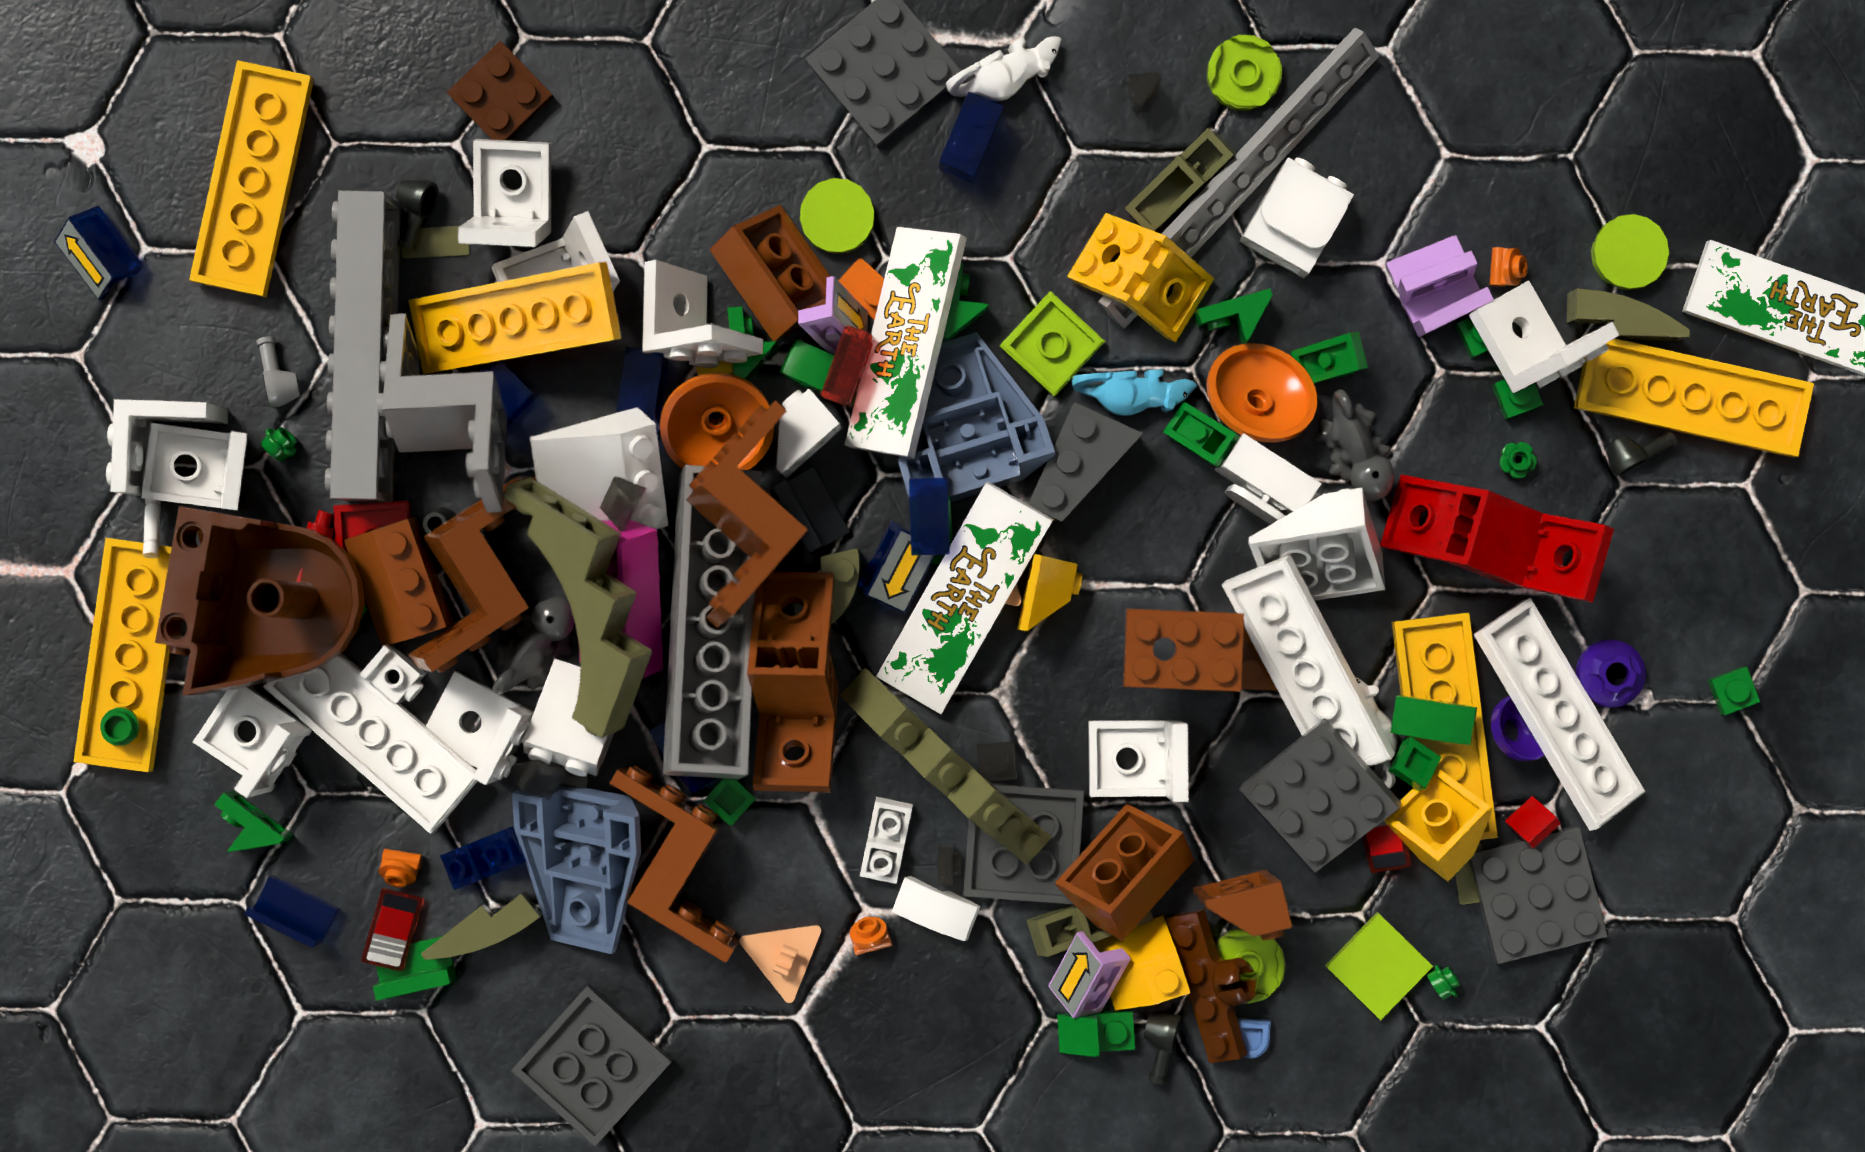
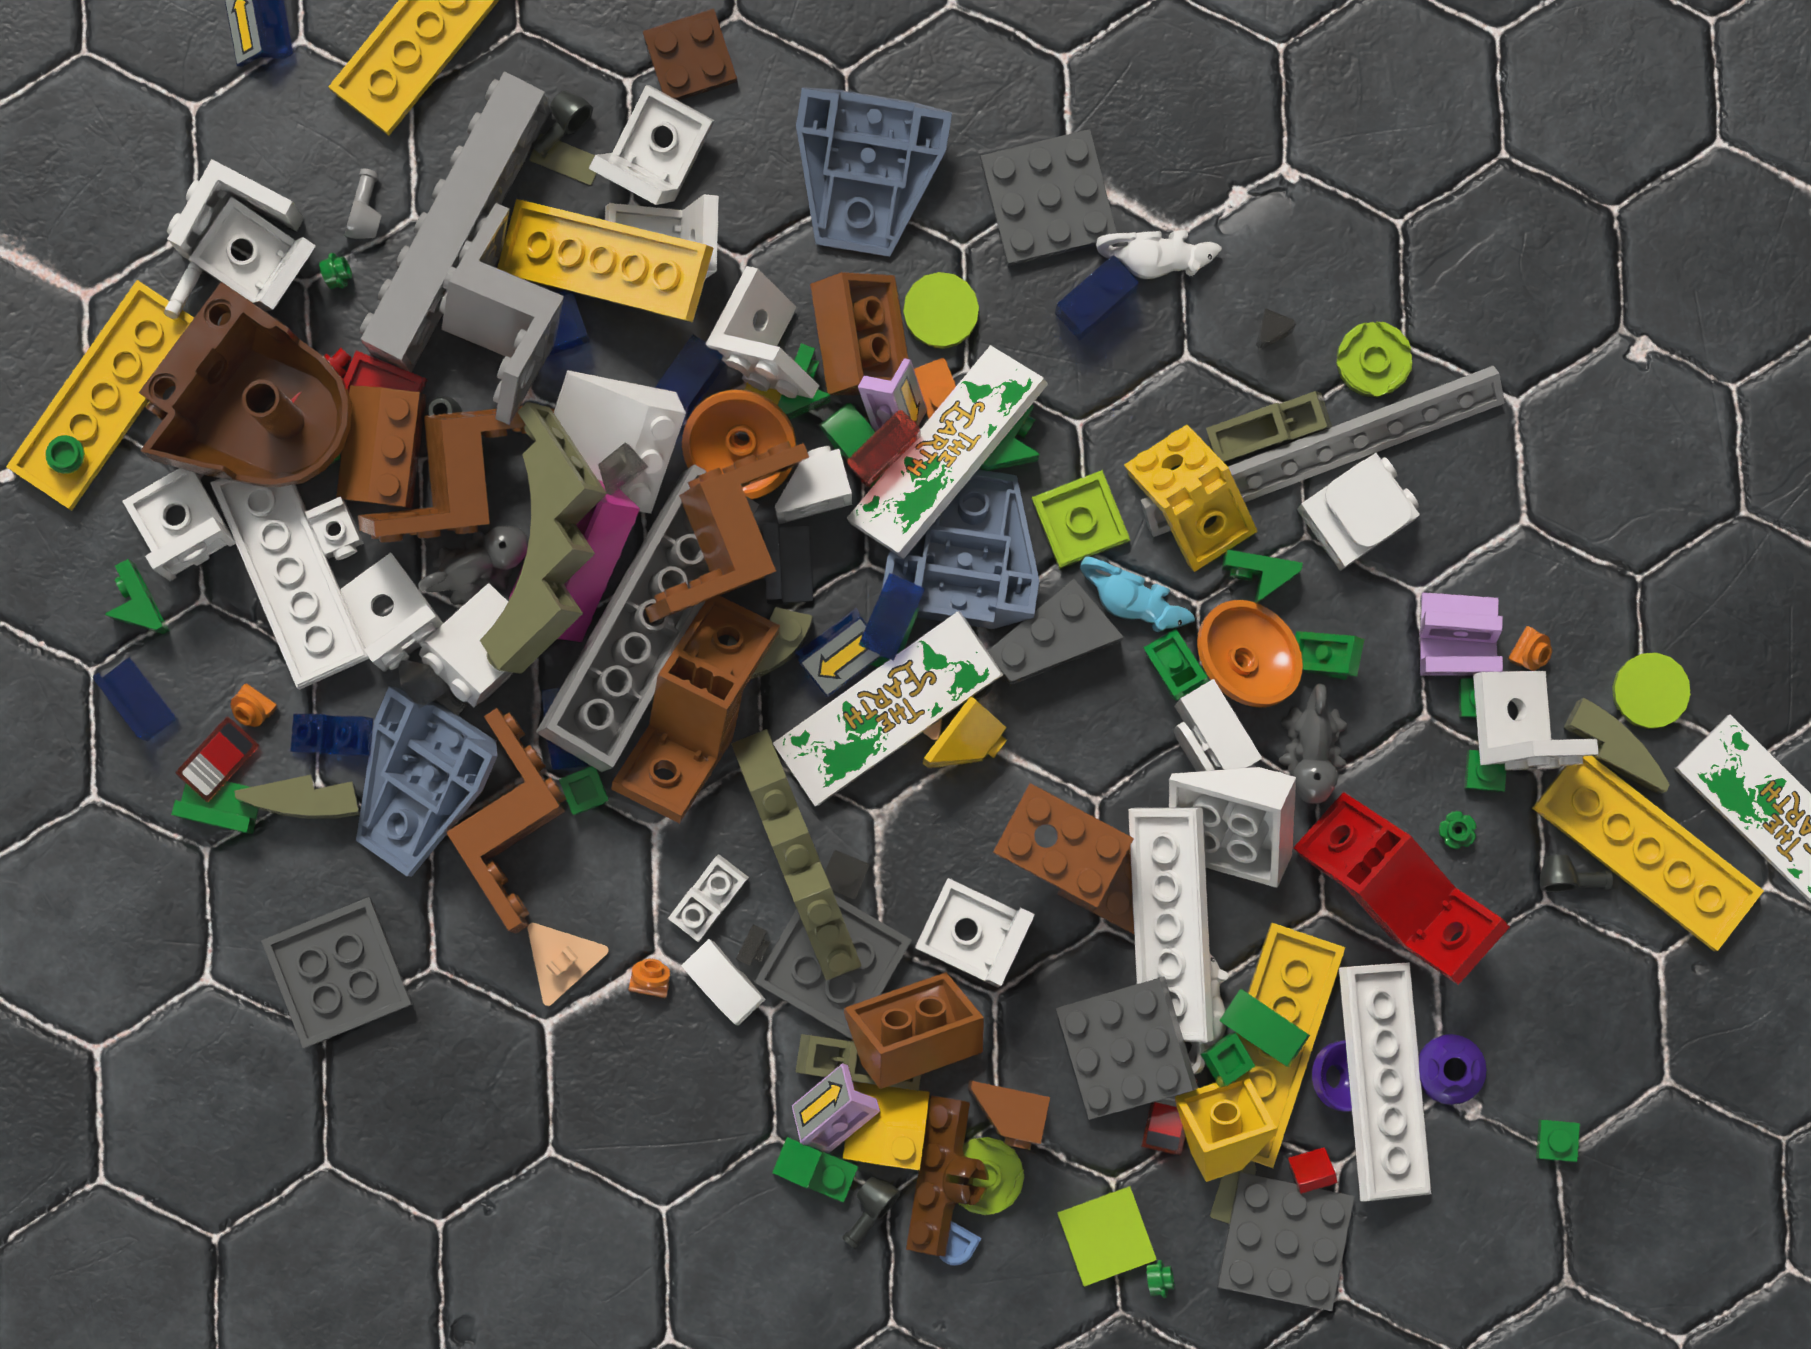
camera: 20 degrees right, 5 degrees down
(706, 116) = (866, 164): none -> sand blue wedge

